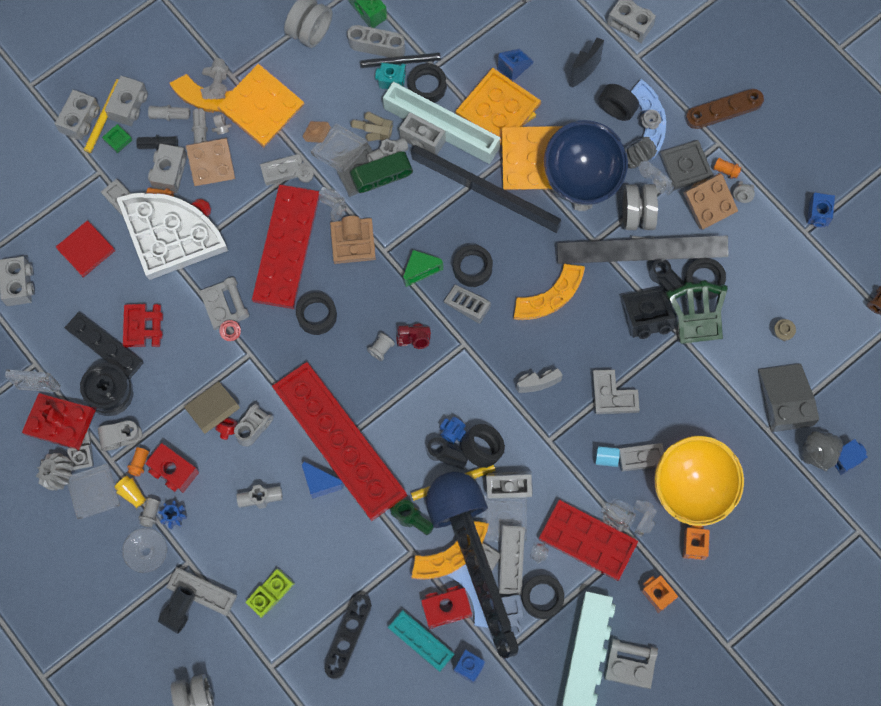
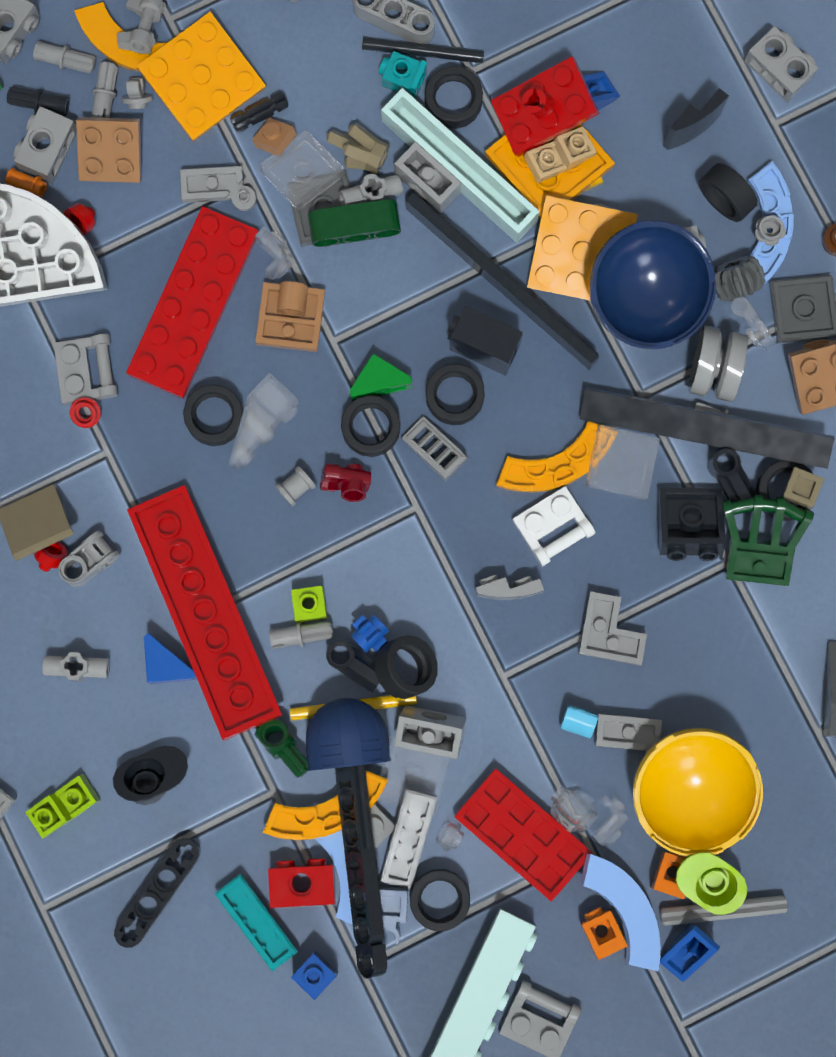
camera: 10 degrees right, 10 degrees up
(303, 119) = (259, 111): none -> black axle
(326, 556) = (150, 775): none -> black piece
(349, 303) = (263, 412): none -> clear slope
(405, 442) = (300, 634): none -> light grey axle
(408, 427) = (316, 613): none -> lime plate
(422, 282) = (357, 406): none -> black tyre
(484, 225) = (484, 340): none -> black piece
(488, 74) = (545, 106): none -> red plate
(505, 102) = (560, 155): none -> tan slope
(553, 330) = (548, 517): none -> white plate
(593, 284) = (622, 462): none -> clear tile
(674, 570) = (632, 906): none -> light blue tile
(715, 271) = (802, 488): none -> dark tan plate
(720, 592) = (688, 952): none -> blue slope
(724, 540) = (711, 883): none -> lime piece
(736, 560) = (749, 908): none -> light grey axle

